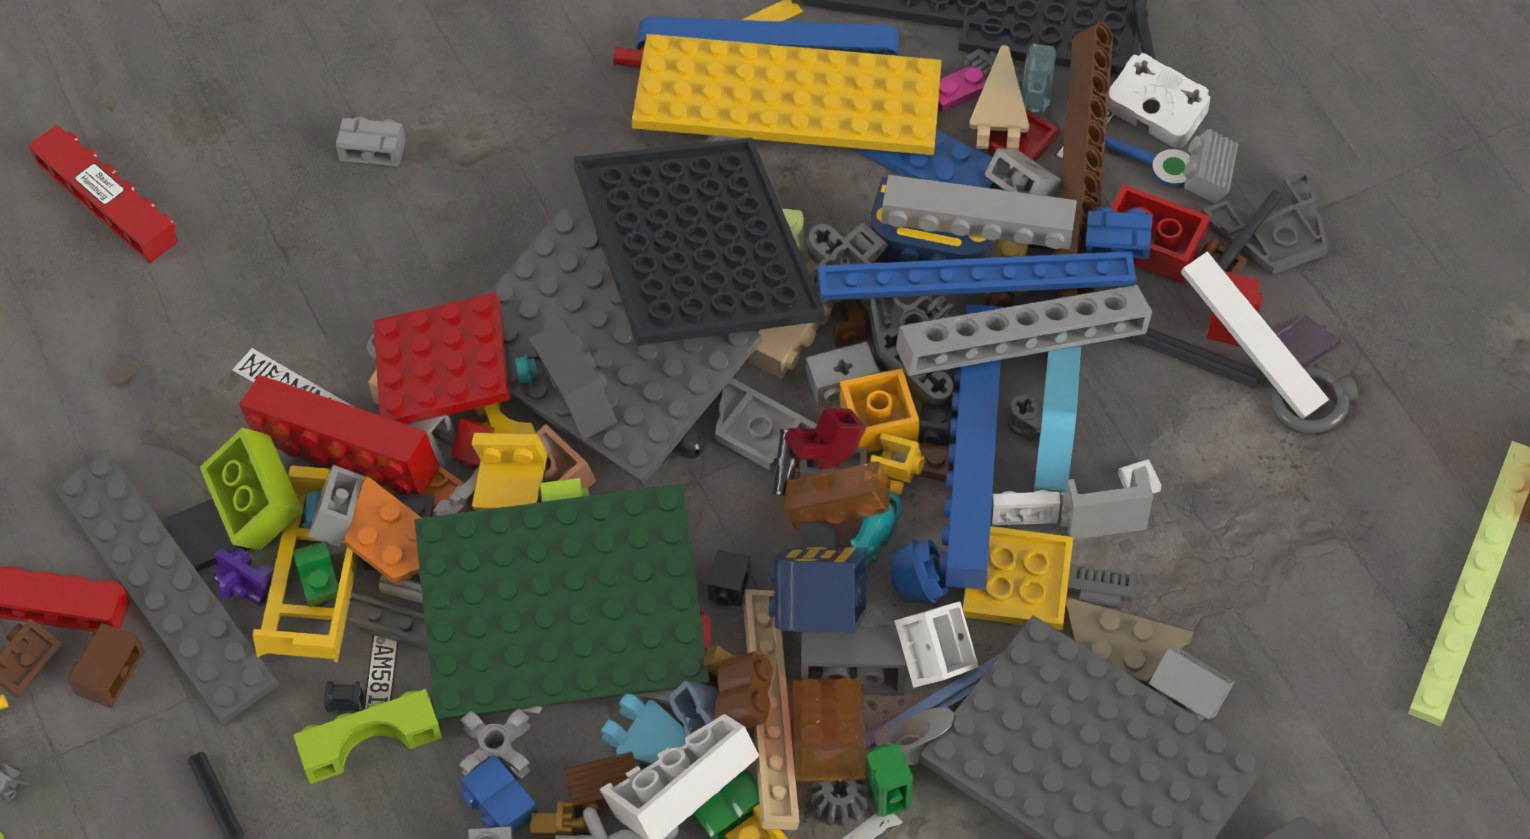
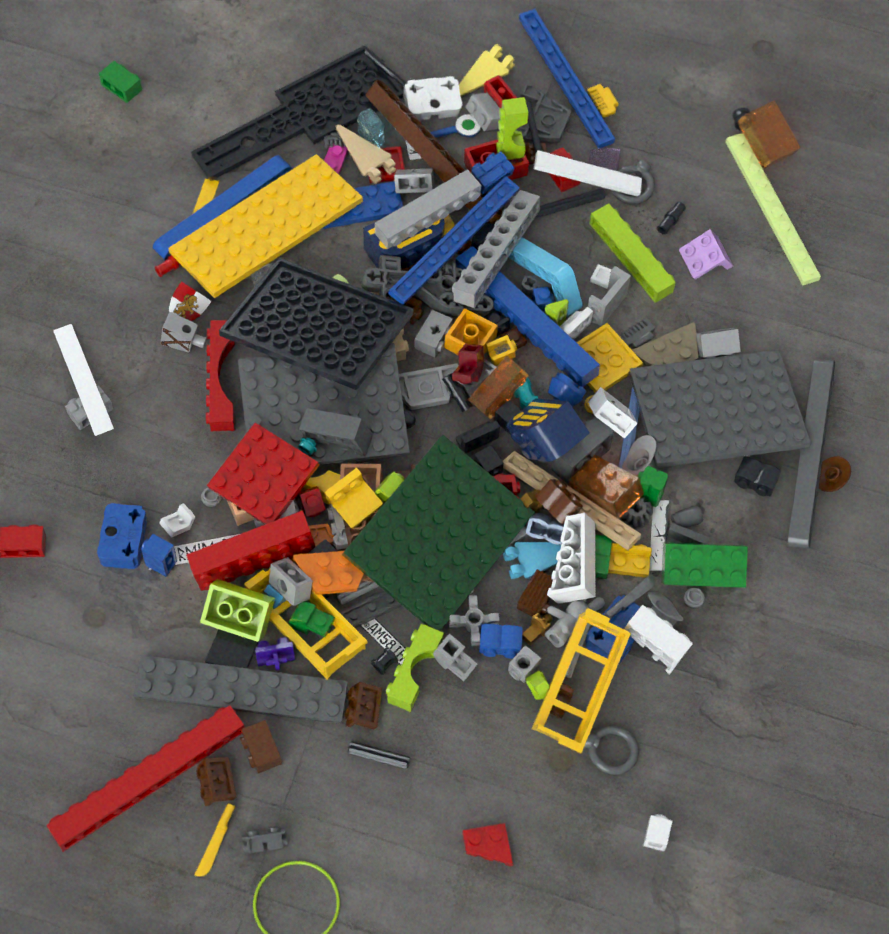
camera: 50 degrees left, 5 degrees up
(239, 319) = (129, 536): none -> blue axle
(243, 354) = (159, 555): none -> blue brick
(264, 726) = (363, 705): none -> reddish brown bracket
(313, 341) = (178, 522): none -> white bracket
(394, 106) = (83, 380): none -> white sticker
(419, 764) = (450, 656): none -> light grey brick
(496, 257) = (221, 409): none -> red arch
(553, 137) = (181, 333): none -> light grey torso
(597, 113) = (187, 302): none -> shield
(722, 620) = (509, 482): none -> red bracket
(751, 536) = (478, 436): none -> black bracket
(1014, 470) = (557, 311): none -> lime slope
(1019, 445) = (542, 297): none -> blue brick
(1188, 172) = (512, 116): none -> lime arch
(1208, 482) = (632, 253): none -> lime brick
(1250, 162) = (498, 90): none -> red brick
(1272, 120) = (484, 69): none -> light yellow flag
(1310, 560) = (705, 254): none -> lavender bracket
(1314, 480) = (671, 218): none -> black pin
(1369, 207) = (567, 79): none -> blue plate
(1393, 269) = (607, 100): none -> yellow piece

